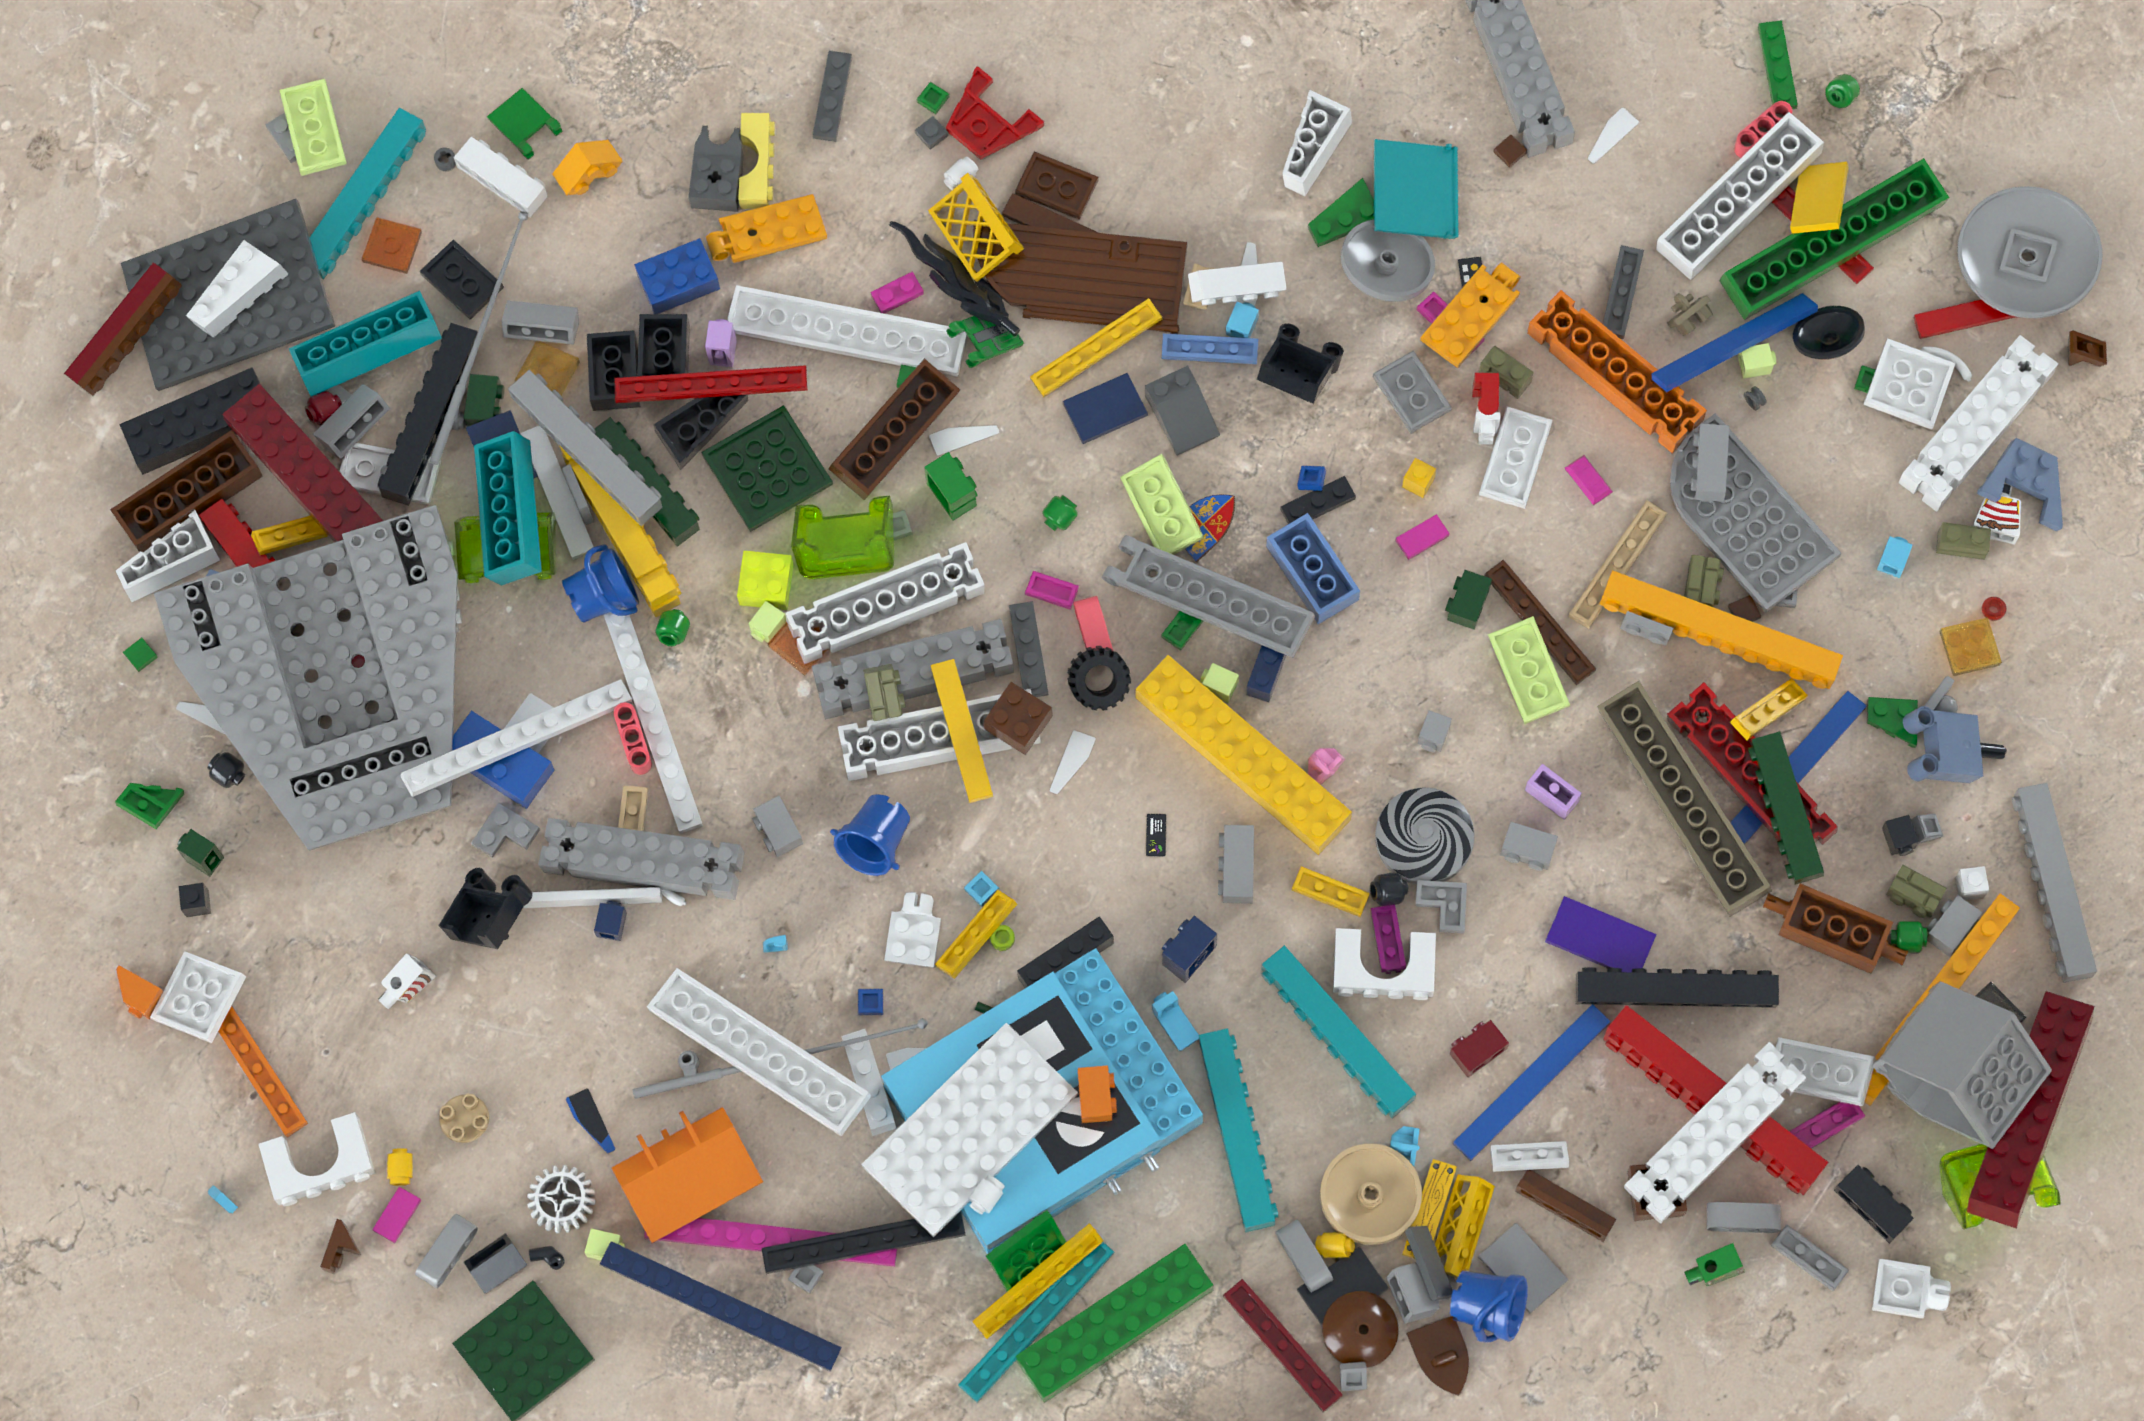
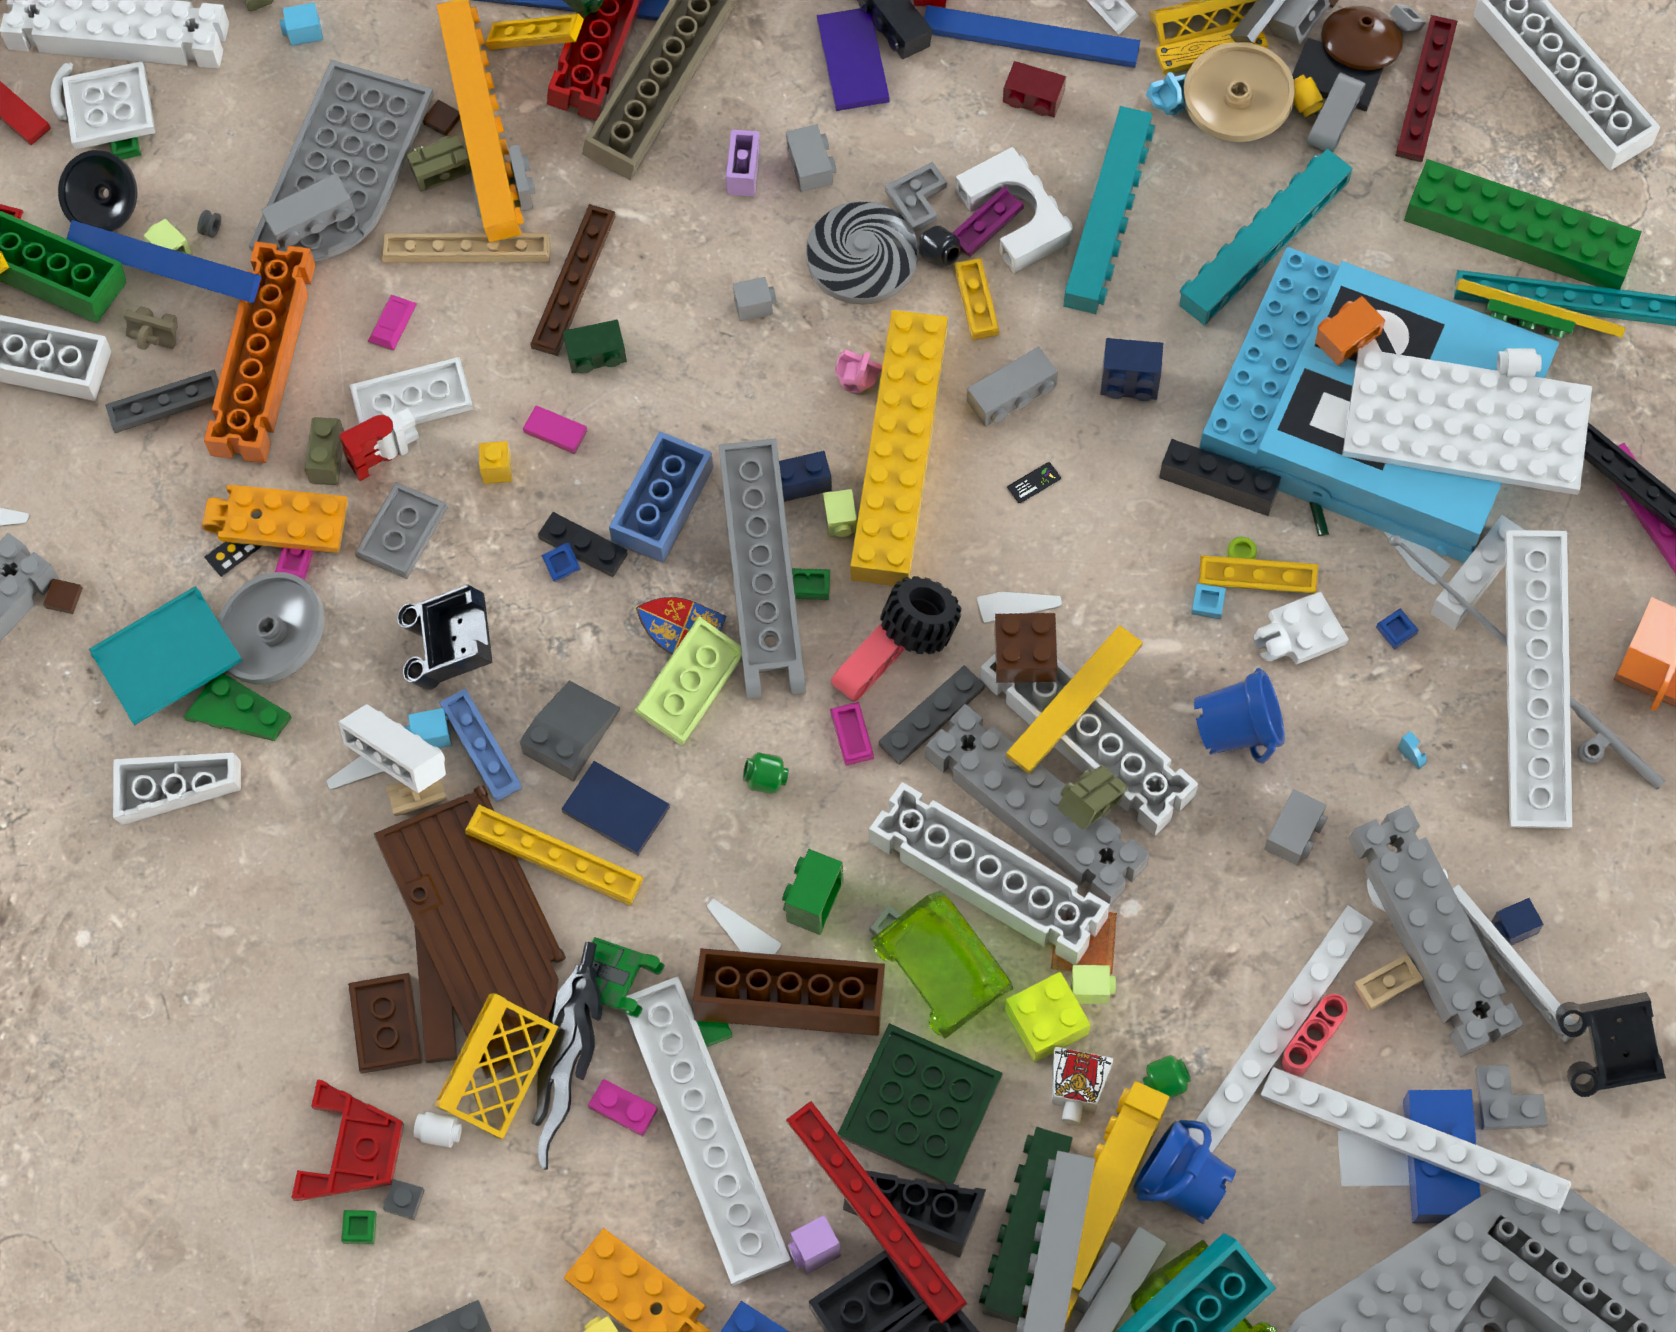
camera: 125 degrees left, 5 degrees down
(710, 571) = (1078, 1082): none -> torso
(1174, 1020) = (1205, 350): medium azure bracket -> none
(1529, 670) = (631, 257): yellowish green tile -> none

